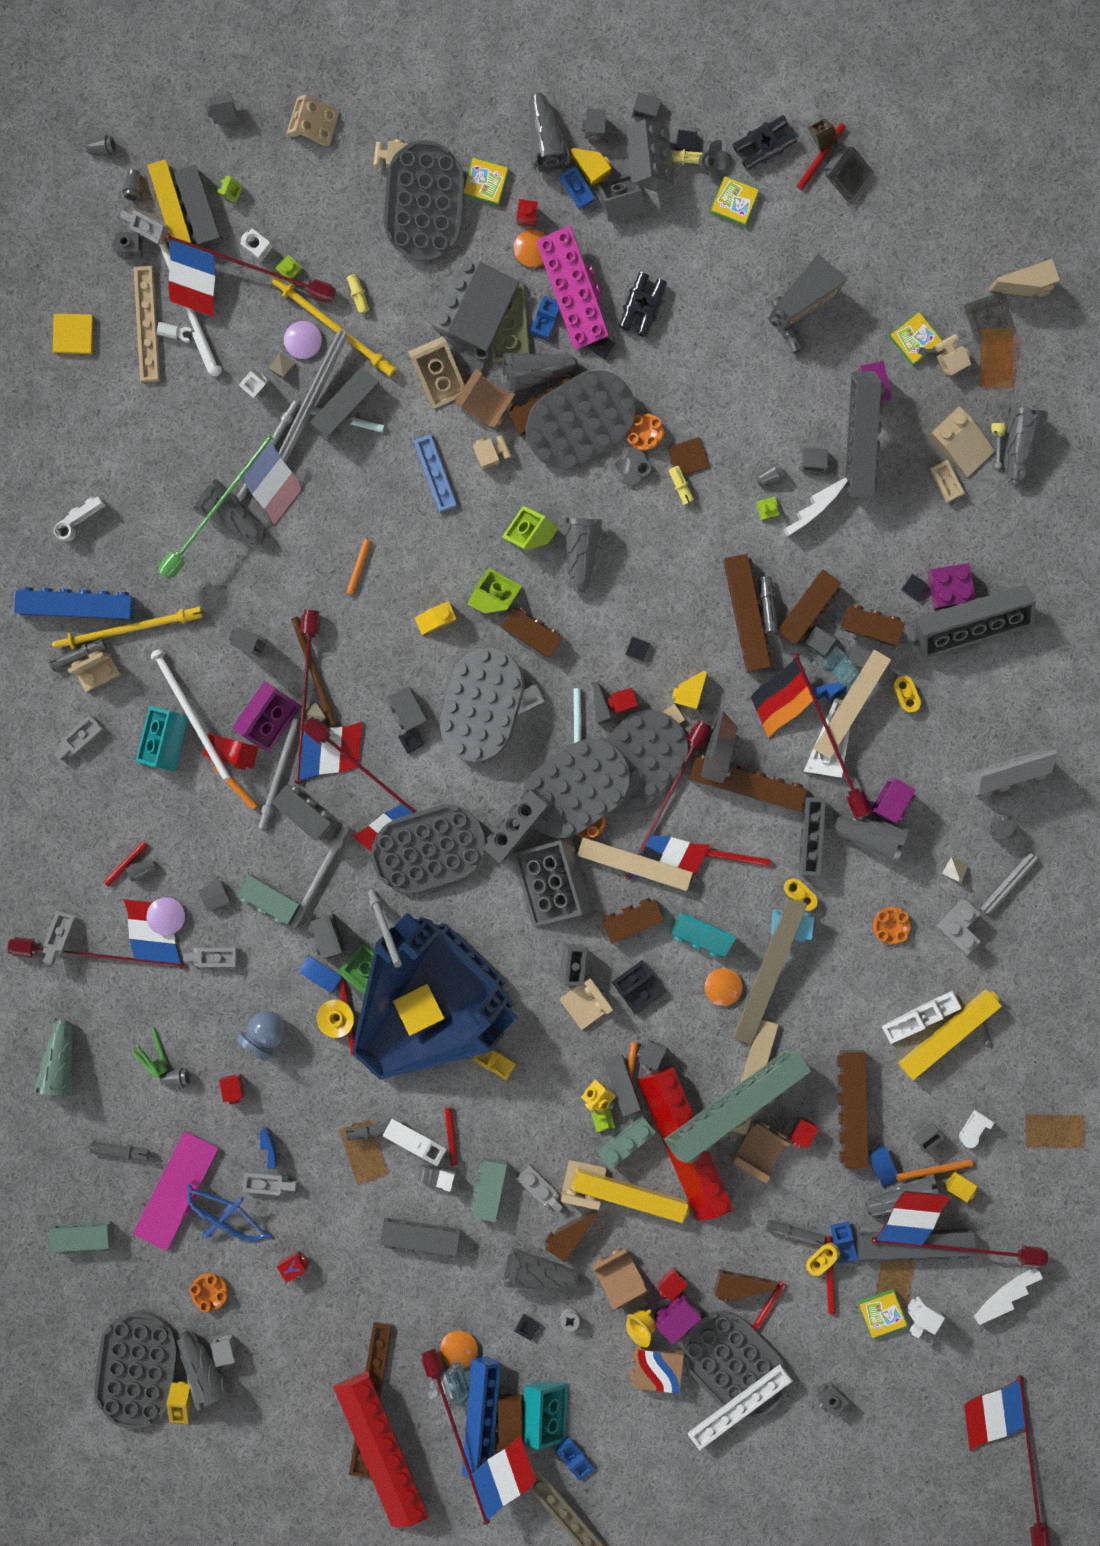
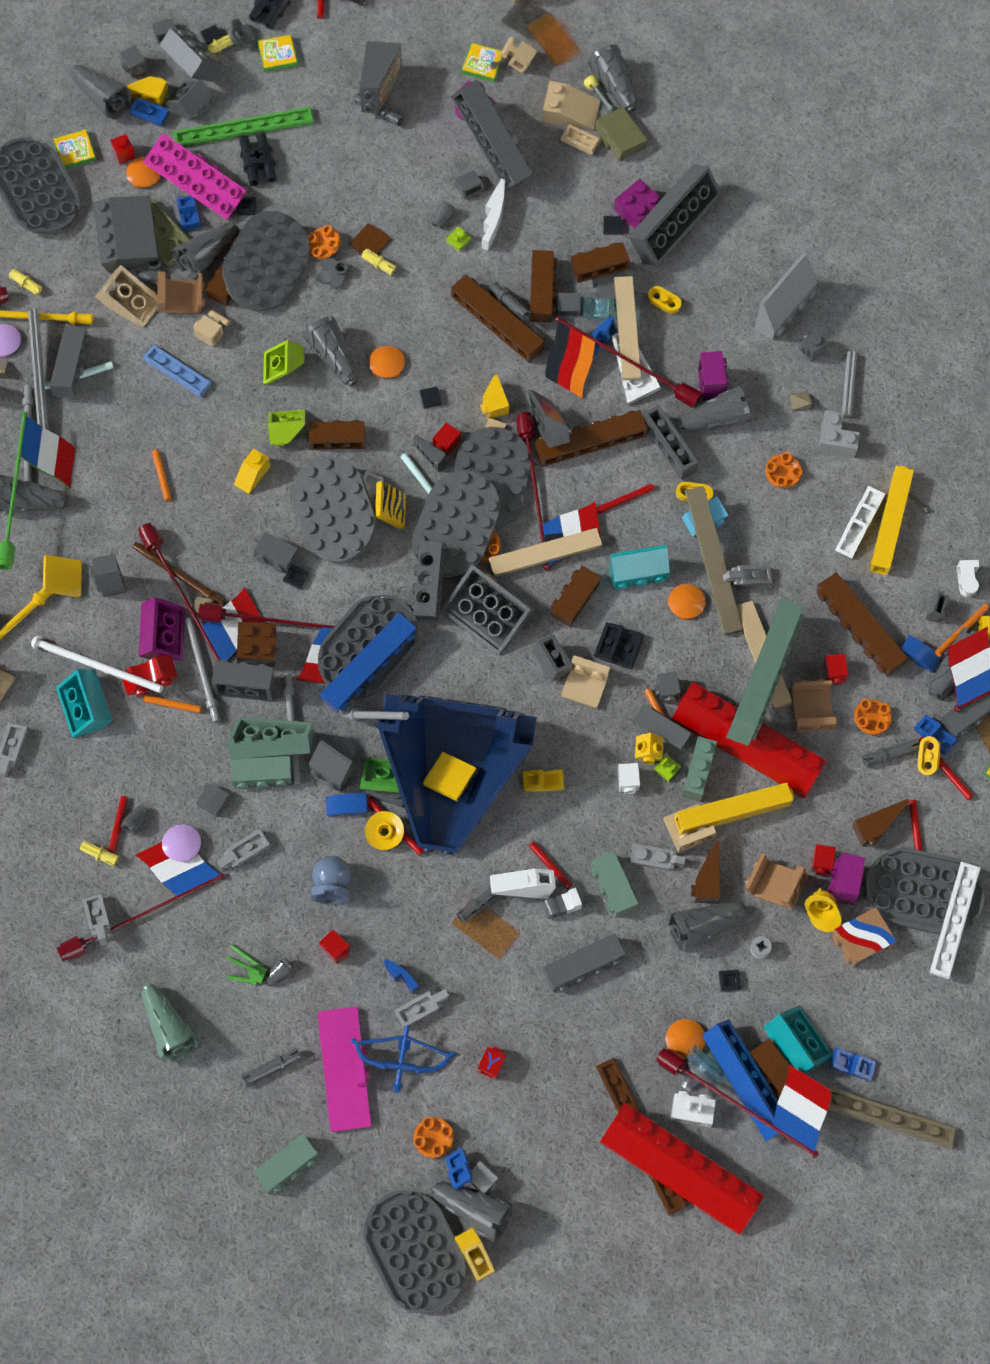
camera: 30 degrees left, 20 degrees down
(94, 879) = (99, 853): none -> light yellow axle
(210, 1336) = (459, 1168): none -> blue slope
(213, 609) = (62, 576): none -> yellow tile
(290, 878) = (269, 738): none -> sand green wedge
(336, 784) = (256, 643): none -> reddish brown brick
(415, 868) = (368, 663): none -> blue brick
(423, 1410) = (693, 1109): none -> white brick
(531, 733) = (390, 505): none -> yellow tile
(564, 1109) = (628, 778): none -> white brick
(622, 588) = (386, 362): none -> orange dish
(652, 260) = (244, 126): none -> bright green tile
(790, 1004) = (749, 575): none -> light grey hinge
(803, 1192) = (872, 716): none -> orange dish
(987, 500) = (620, 133): none -> olive container

